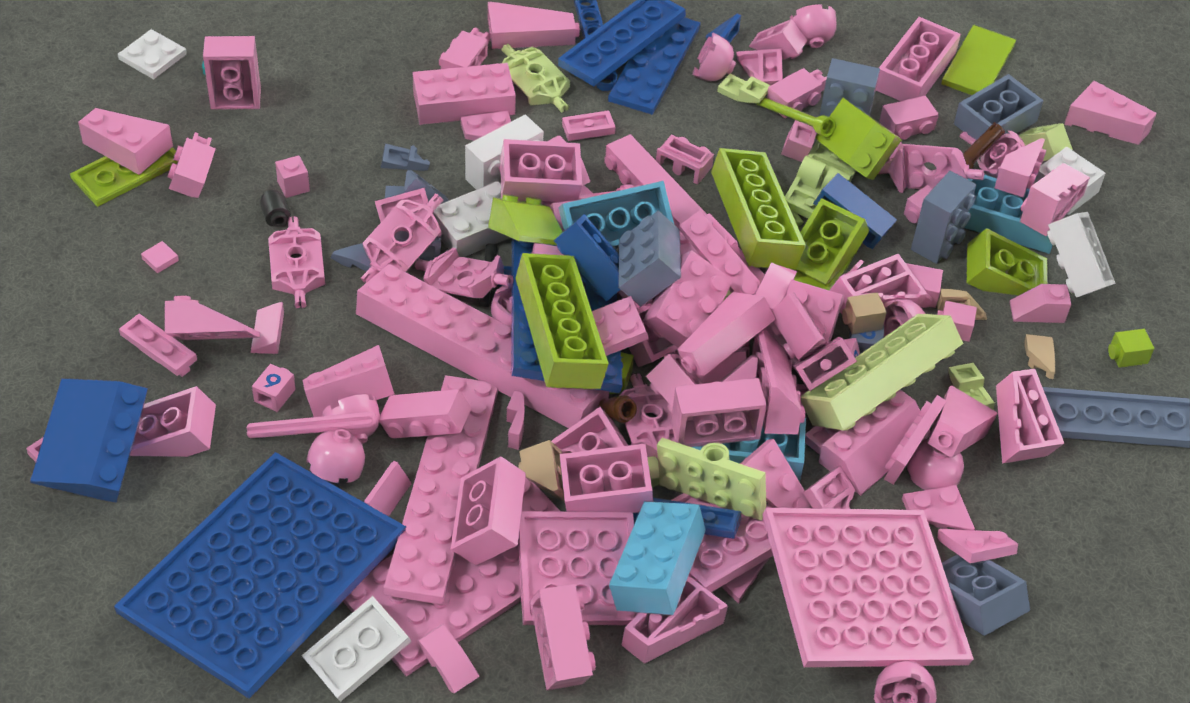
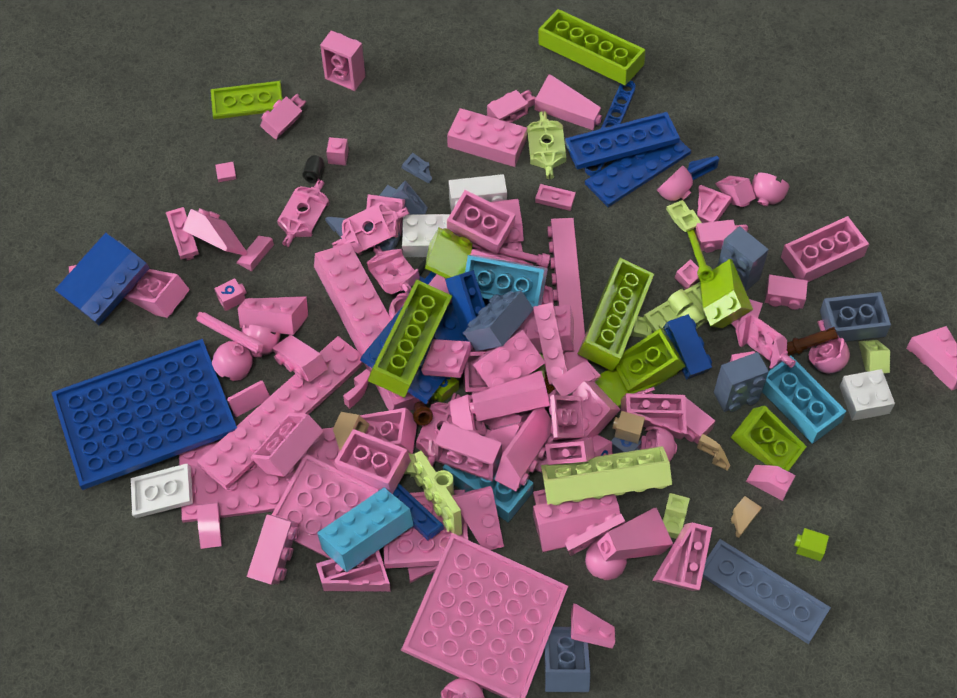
camera: 35 degrees right, 10 degrees up
(125, 138) = (253, 80): bright pink wedge -> none
(152, 54) = (314, 22): white plate -> none
(482, 124) = (488, 166): bright pink wing -> none
(687, 155) = (596, 253): bright pink window -> none
(831, 491) = (518, 542): bright pink wing -> none
(941, 506) = (586, 588): bright pink wing -> none
(962, 316) = (700, 462): bright pink brick -> none
(978, 60) = (878, 268): lime tile -> none
(1021, 168) = (824, 370): bright pink slope -> none
(1053, 197) = (829, 406): bright pink wedge -> none
(1080, 254) = (818, 459): white brick -> none

